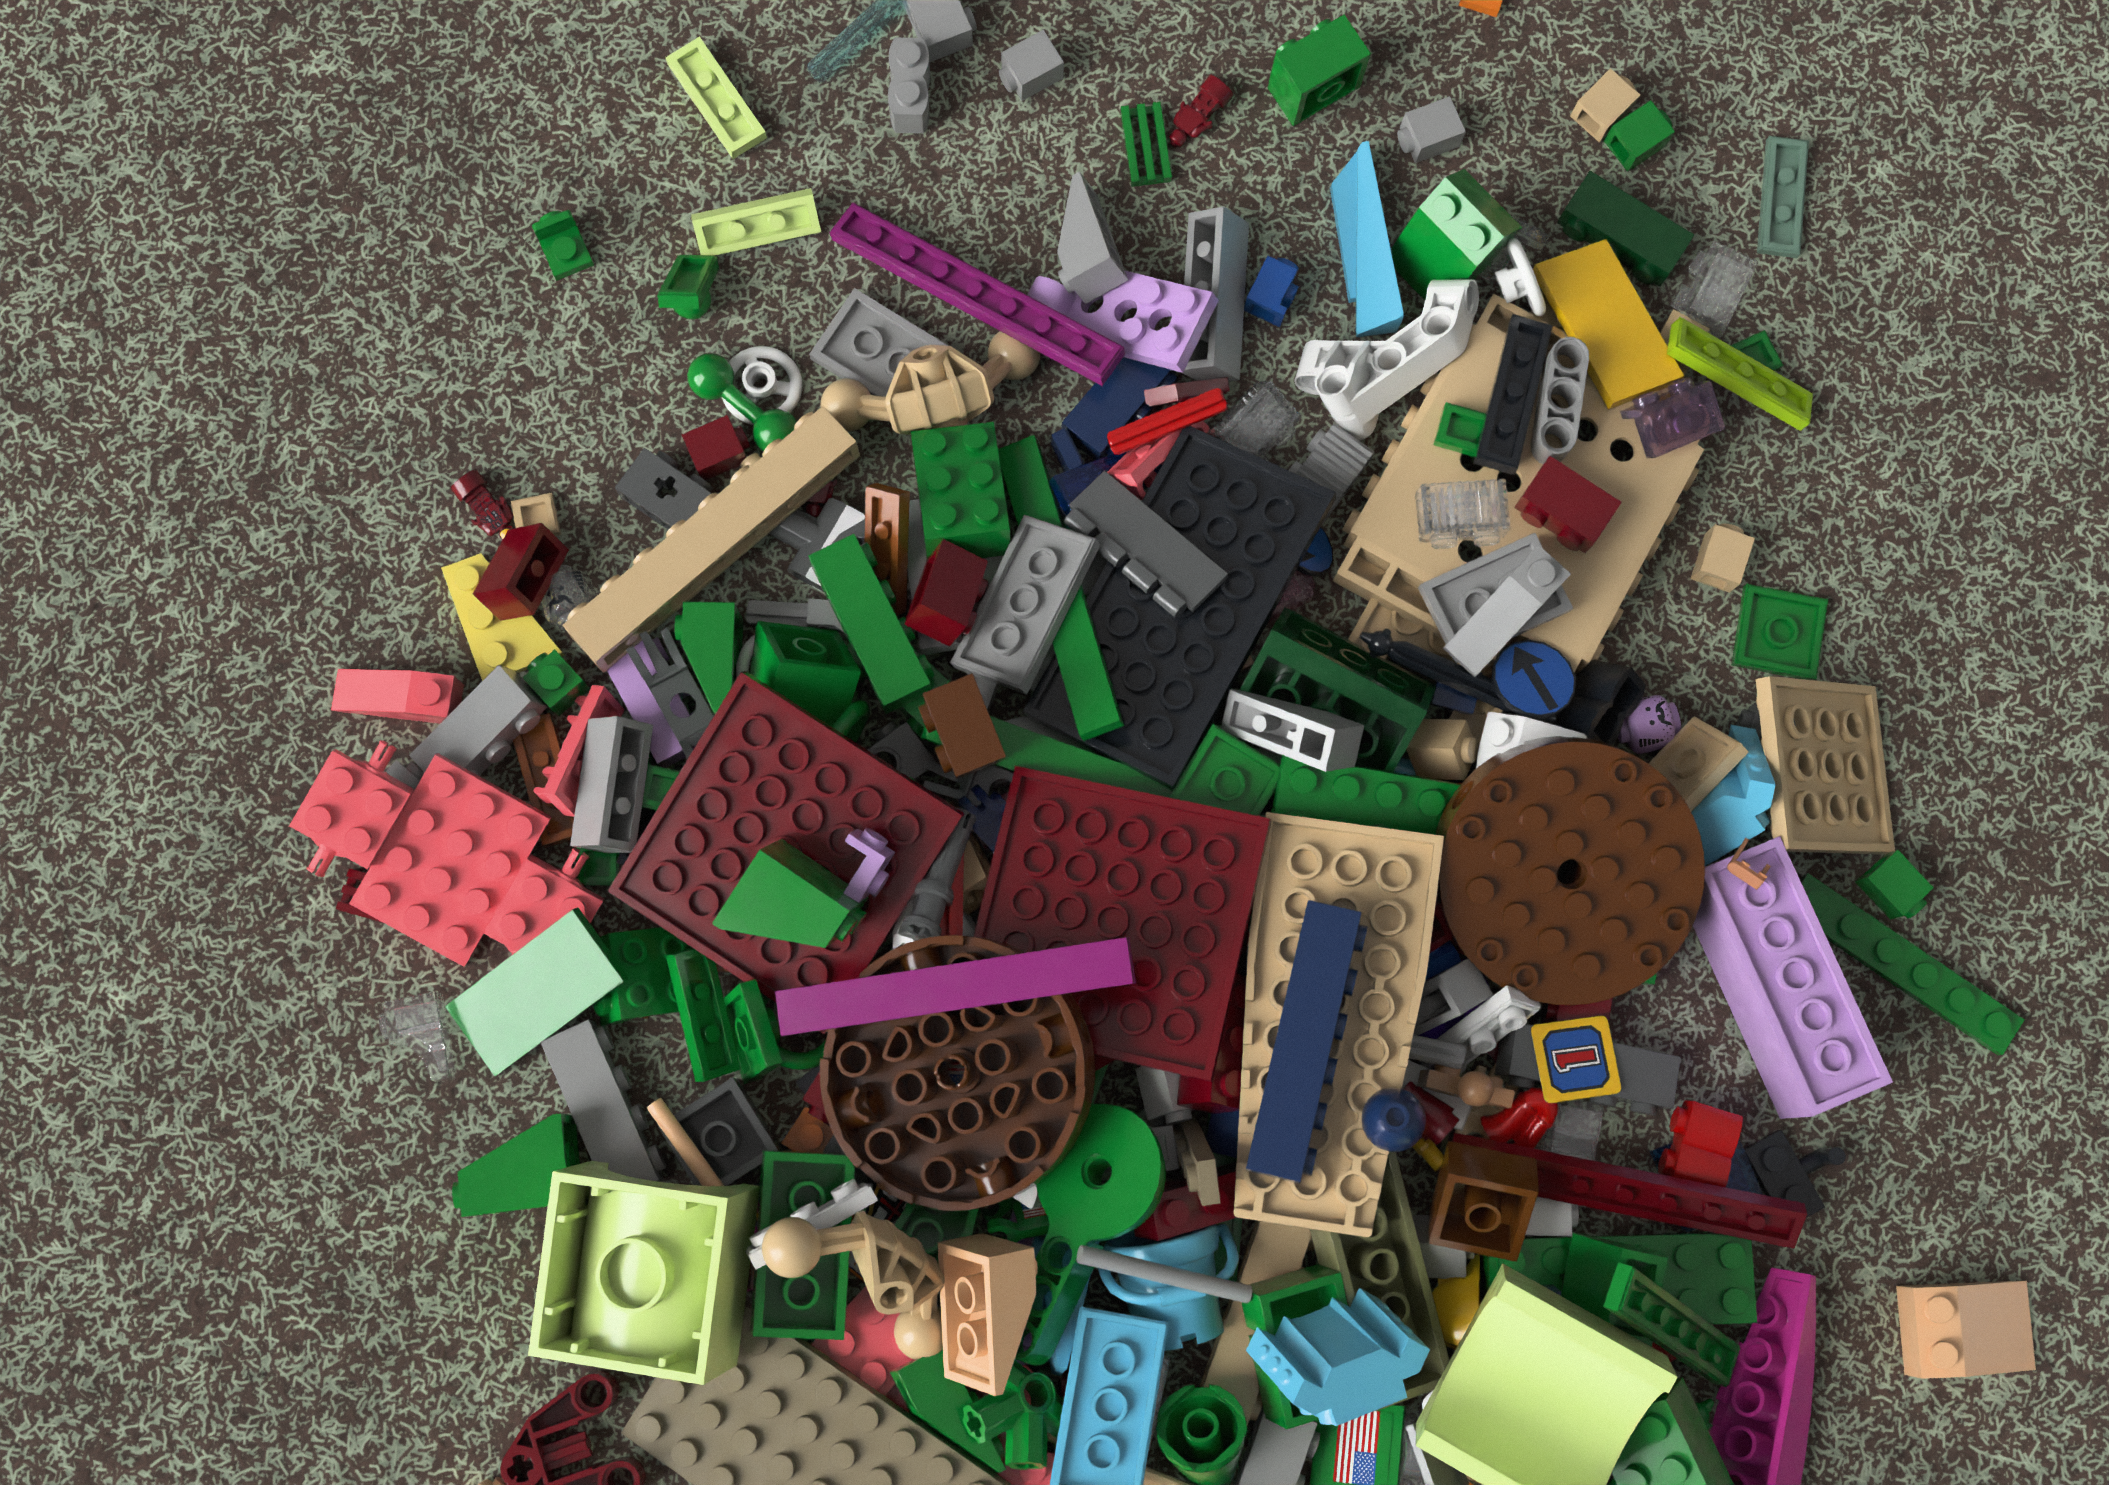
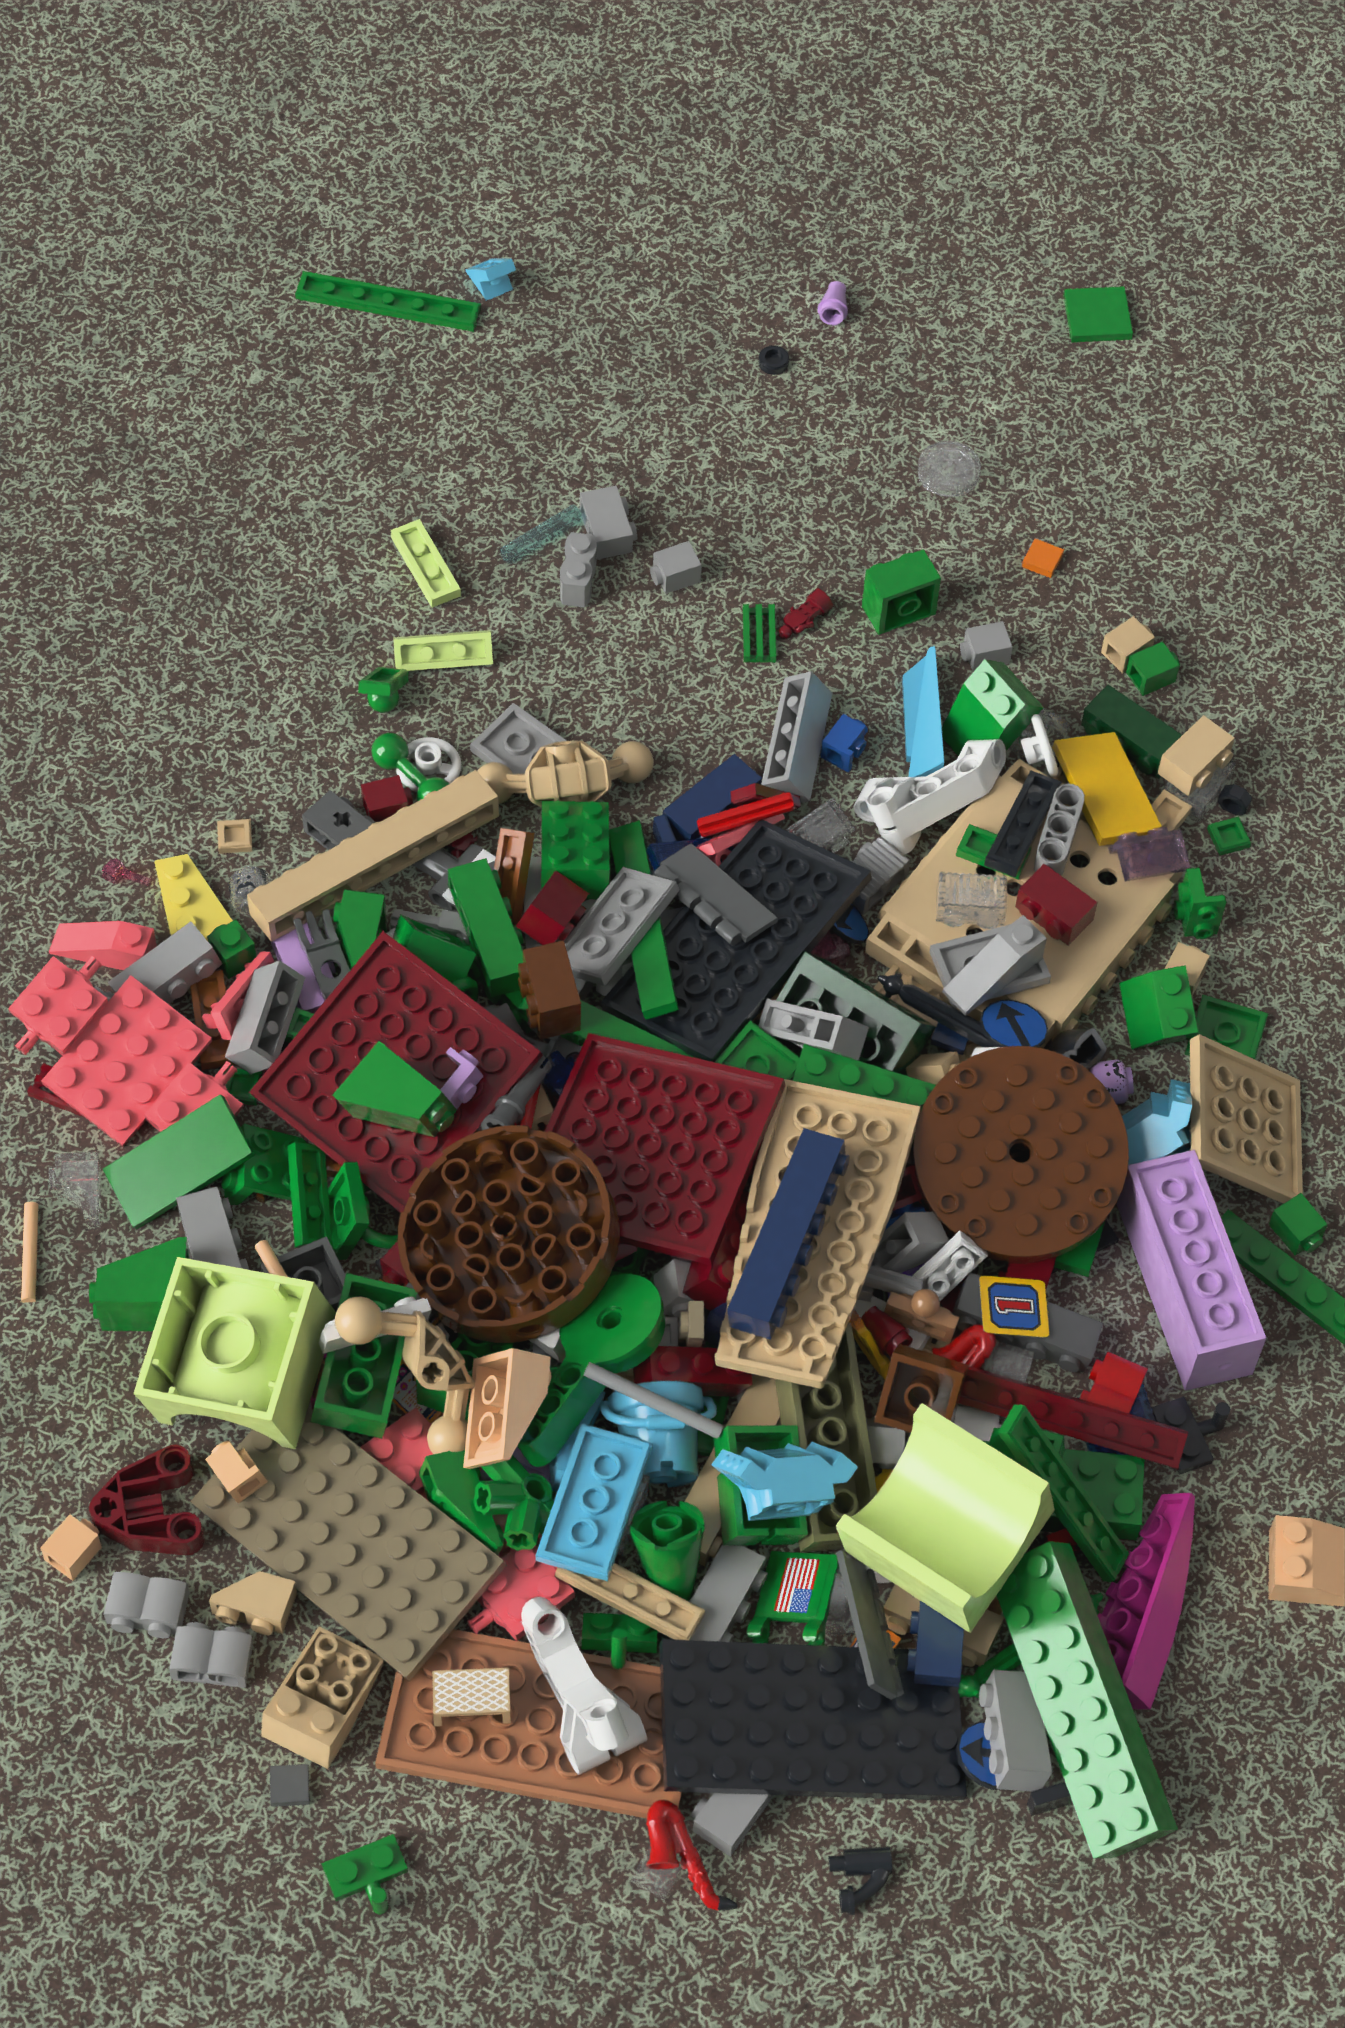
camera: 10 degrees right, 20 degrees down
(375, 1124) = (29, 1262): none -> light nougat bar
(394, 587) = (115, 869): none -> clear pink hand
(492, 514) = (200, 830): dark red piece -> none
(520, 571) = (218, 863): dark red brick -> none
(562, 244) = (288, 648): green bracket -> none
(667, 1408) = (236, 1470): none -> light nougat brick
(956, 986) = (516, 1159): magenta tile -> none
(978, 294) = (610, 714): magenta tile -> none
(1087, 246) = (701, 691): light grey slope -> none
(1154, 299) = (730, 743): lavender hinge -> none
(1393, 1119) = (851, 1297): dark blue brick -> none
(1698, 760) = (1142, 1097): tan tile -> none
(1702, 619) = (1159, 1008): none -> green slope
(1714, 264) = (1196, 756): none -> tan brick
(1728, 472) = (1198, 912): none -> green bracket
(1740, 373) = (1212, 839): lime tile -> none
(1742, 869) = (1159, 1167): nougat piece -> none
(1758, 308) = (1234, 799): none -> black tile
(1783, 197) = (1265, 726): sand green tile -> none

